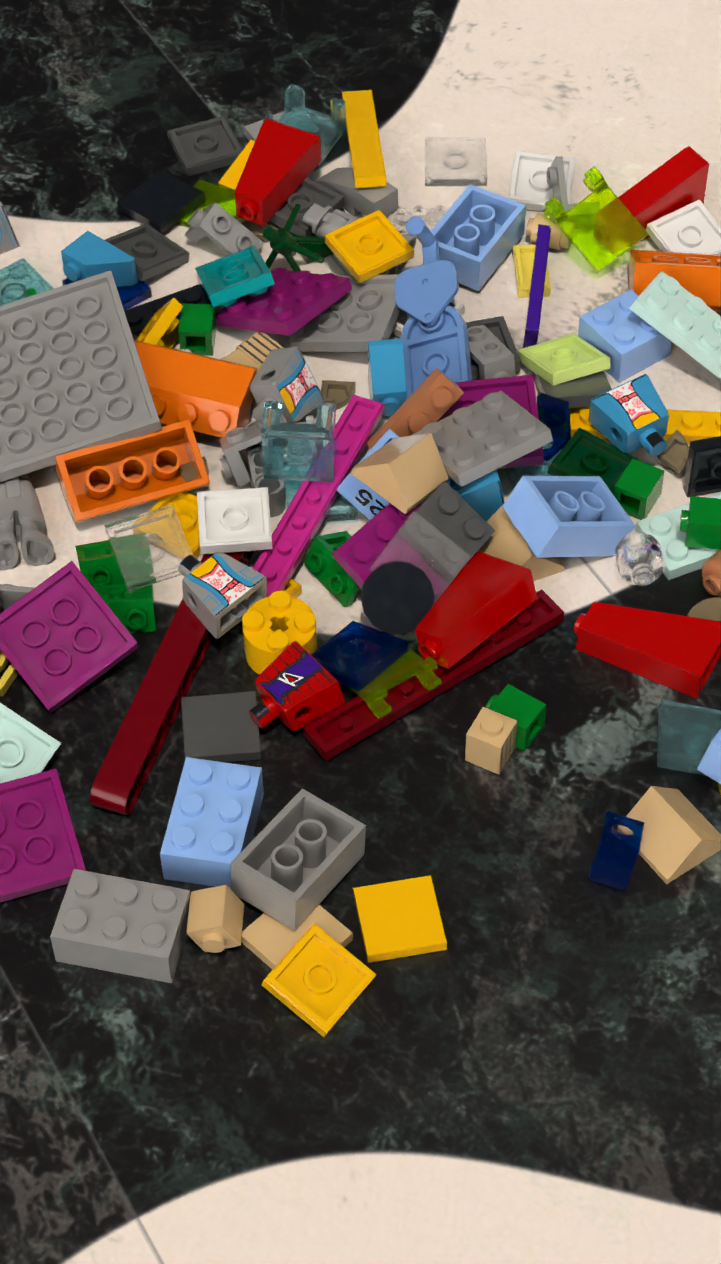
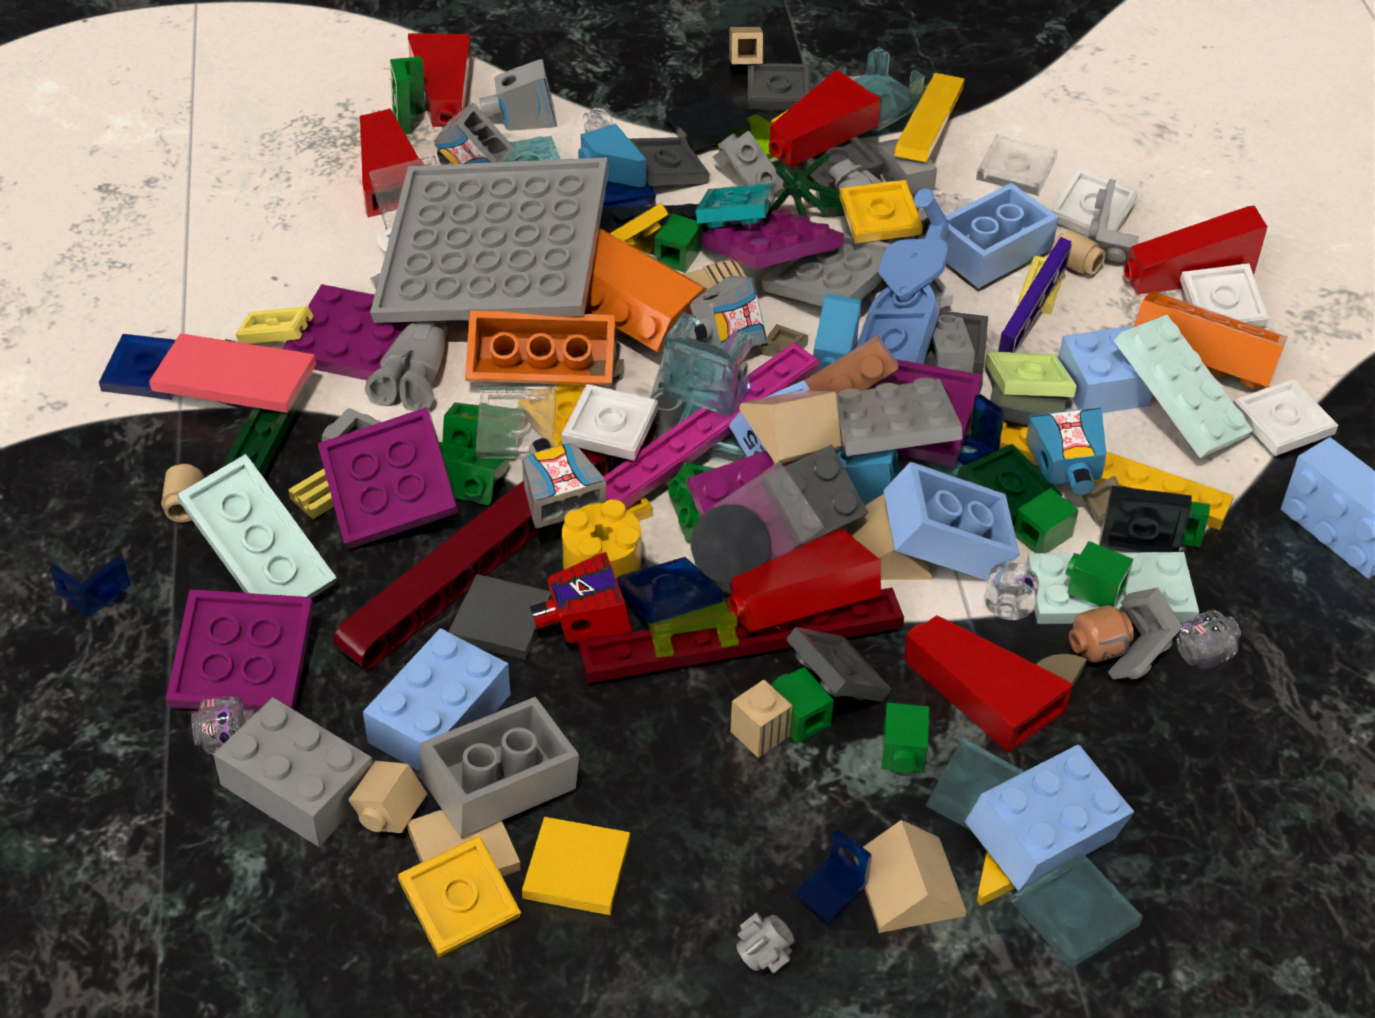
camera: 20 degrees right, 5 degrees down
(34, 908) = (218, 721): none -> clear head
(59, 232) = (596, 119): none -> clear plate
(160, 114) = (746, 45): none -> tan brick
(237, 440) = (645, 364): light grey bracket -> none
(537, 674) = (837, 665): none -> dark grey plate
(587, 925) = (765, 942): none -> light grey gear
(598, 224) = (1126, 257): clear neon green flag -> none
(614, 715) = (905, 738): none -> green brick

